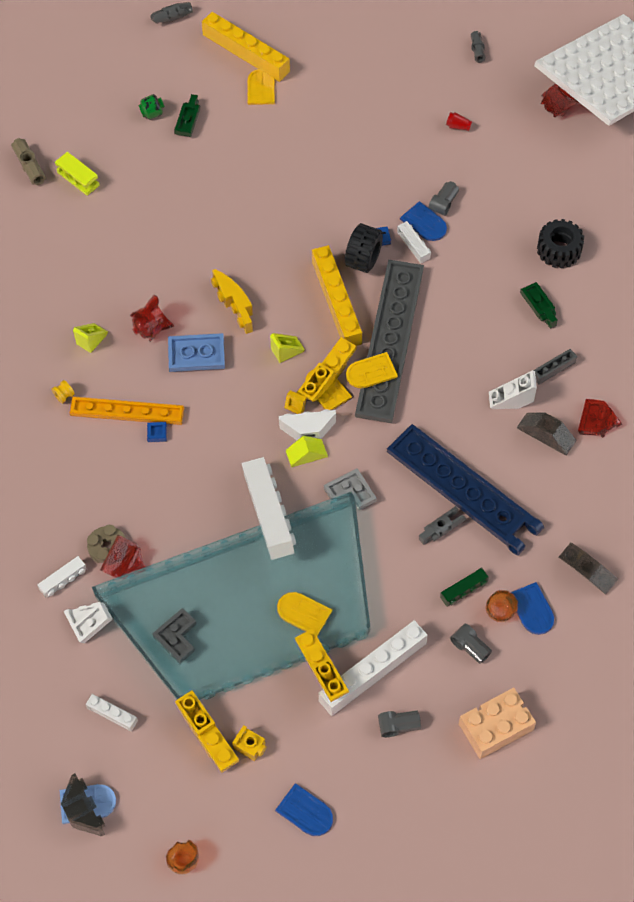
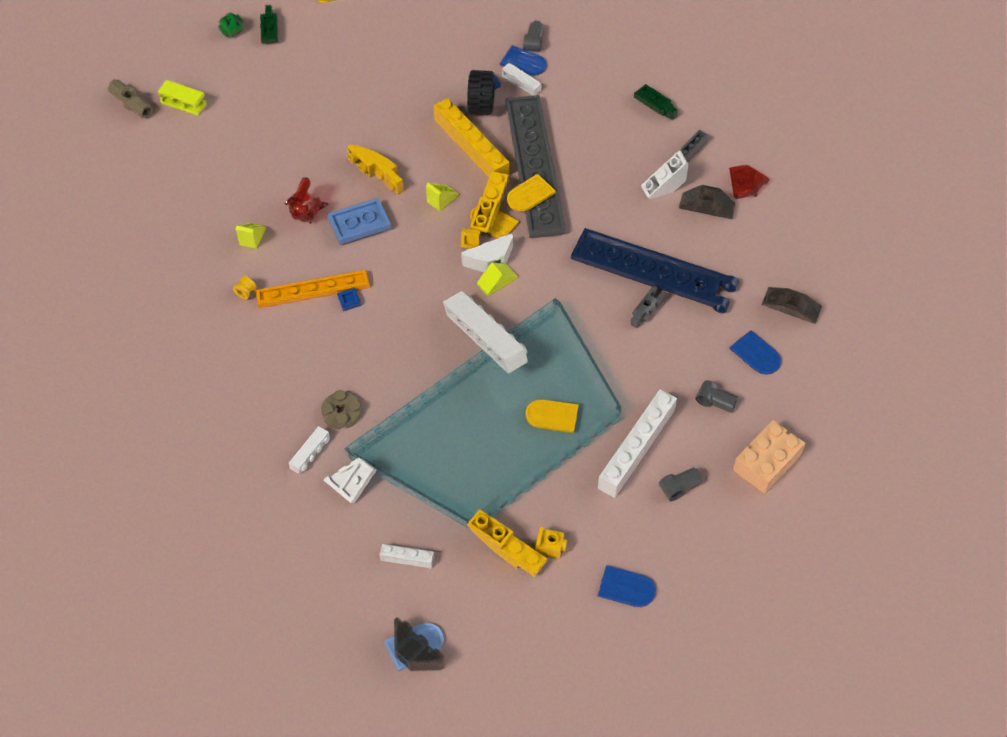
camera: 20 degrees left, 5 degrees down
(122, 558) = (362, 416): clear red slope -> none
(171, 635) = (438, 471): dark grey plate -> none
(182, 857) = (530, 662): clear orange hair -> none
(321, 665) = (592, 452): yellow slope -> none
(352, 482) = (550, 291): light grey plate -> none
(463, 587) = (689, 352): dark green piece -> none
(501, 606) = (731, 357): clear orange hair -> none
(562, 232) = (653, 47): black tyre -> none

